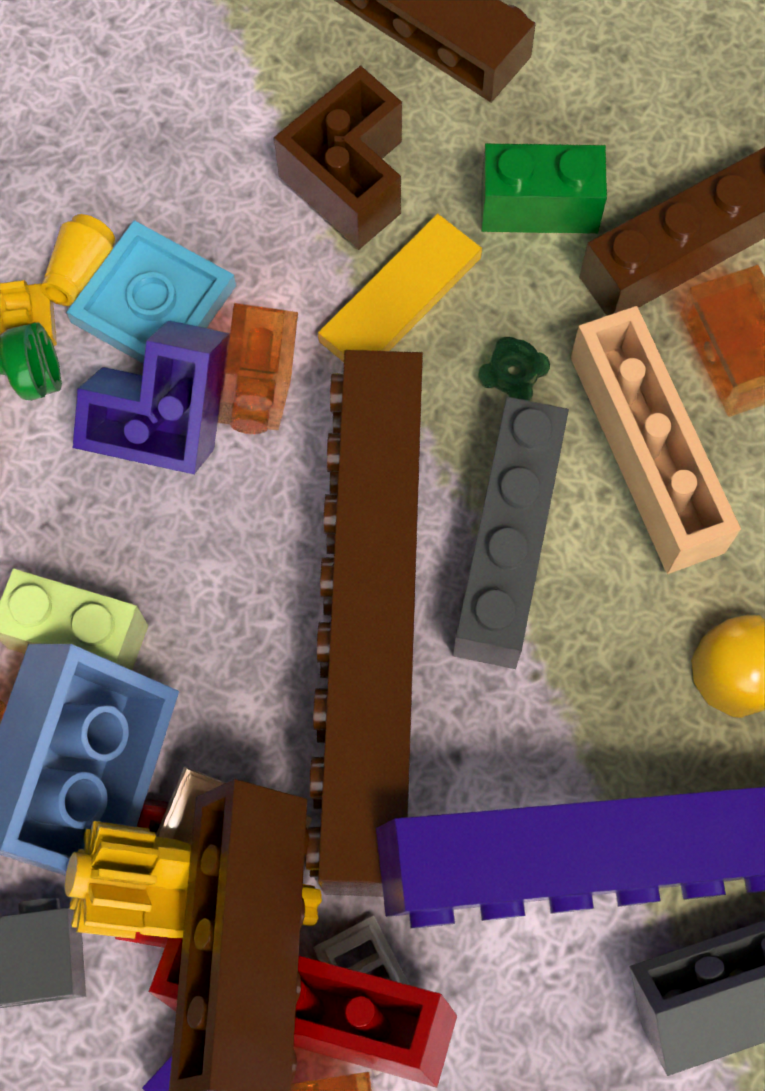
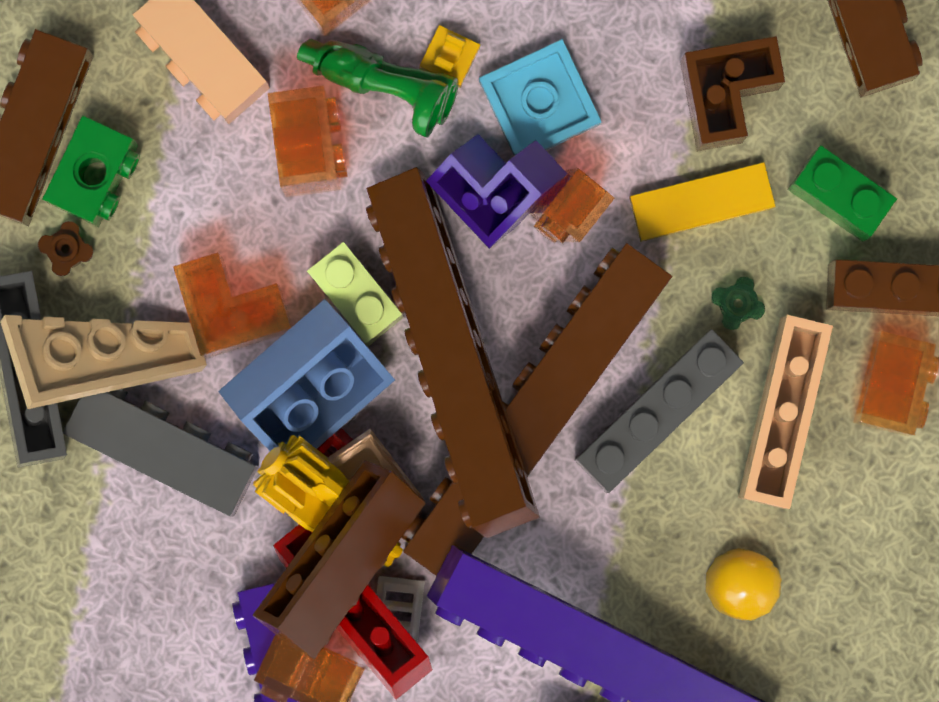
camera: 30 degrees right, 15 degrees up
(76, 257) = (508, 42): yellow cone -> none
(236, 614) = (452, 355): none -> reddish brown brick

